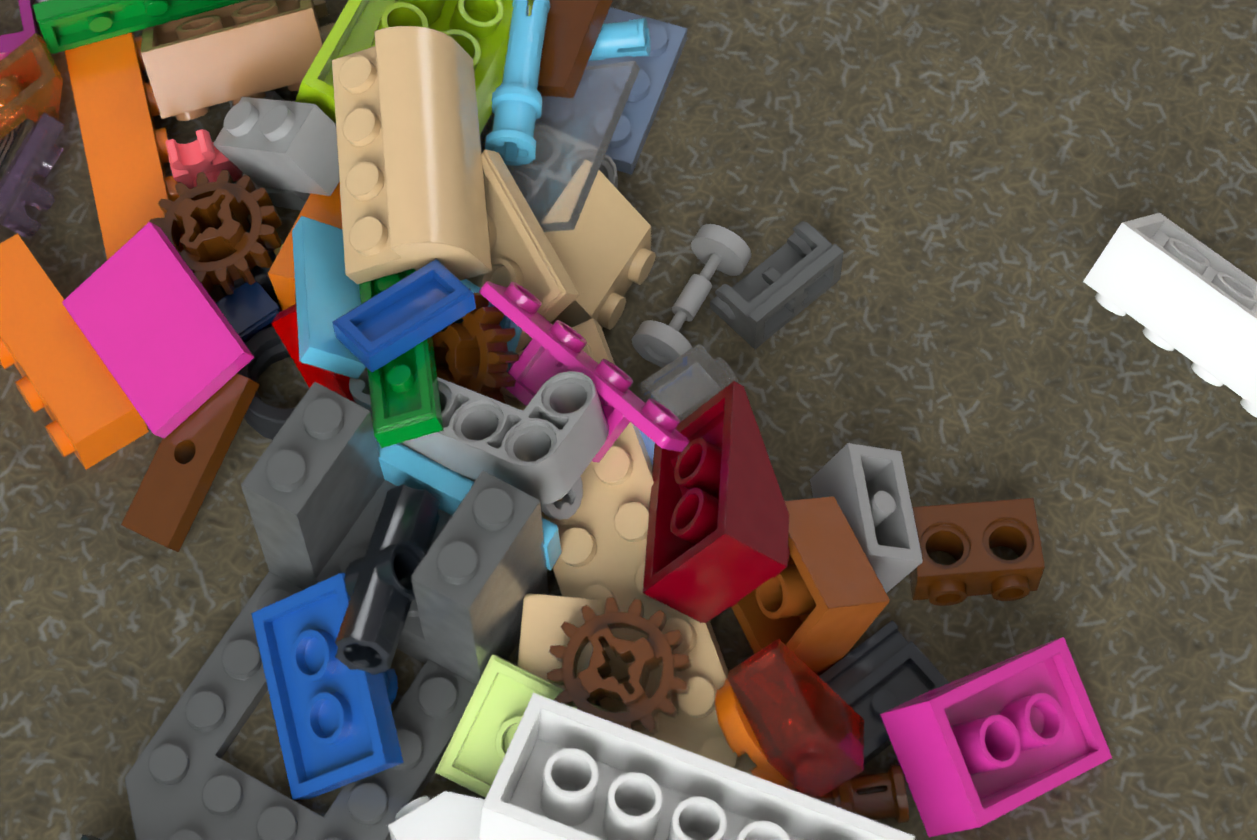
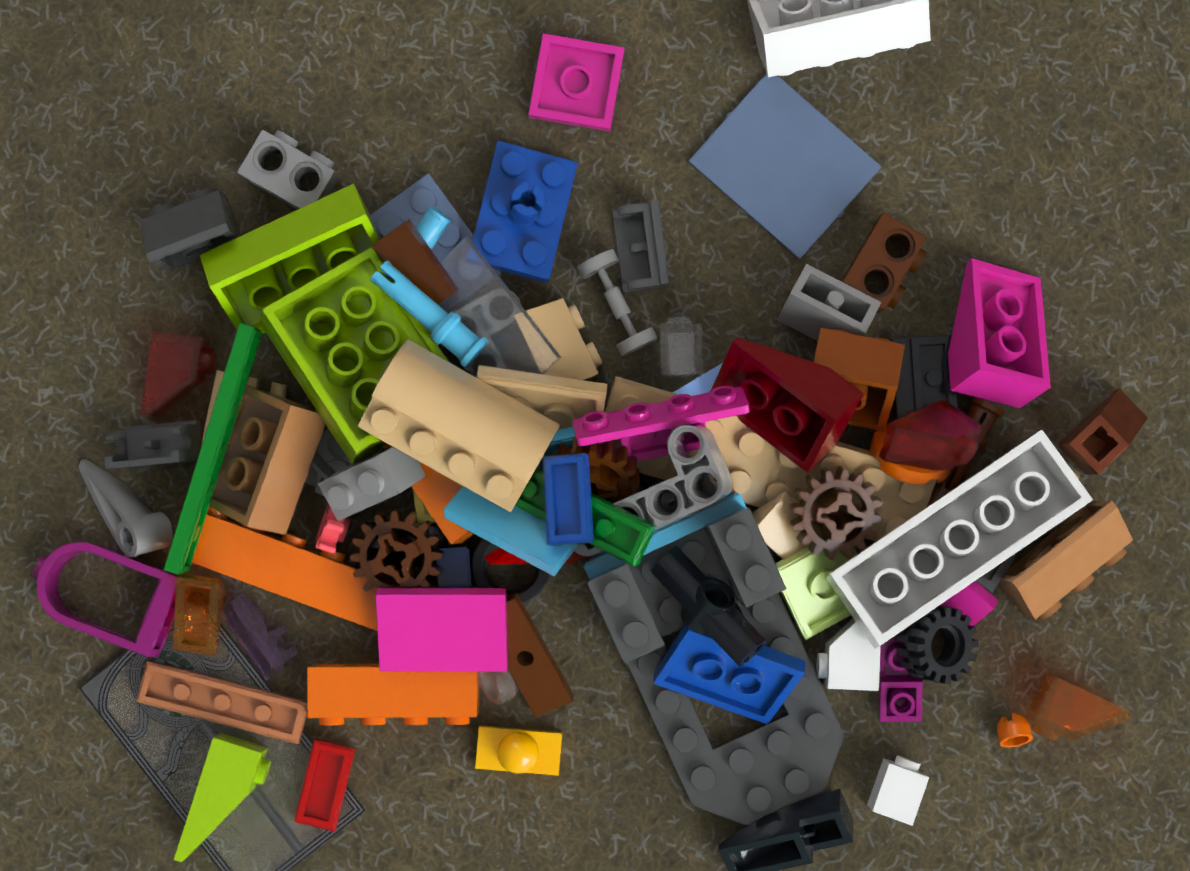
camera: 55 degrees left, 25 degrees up
(66, 537) = (518, 750): none -> yellow tile
(134, 455) = (498, 686): none -> clear tile
(718, 139) = (523, 210): none -> blue plate
(908, 105) = (576, 82): none -> dark pink plate
(1002, 381) = (784, 164): none -> sand blue piece

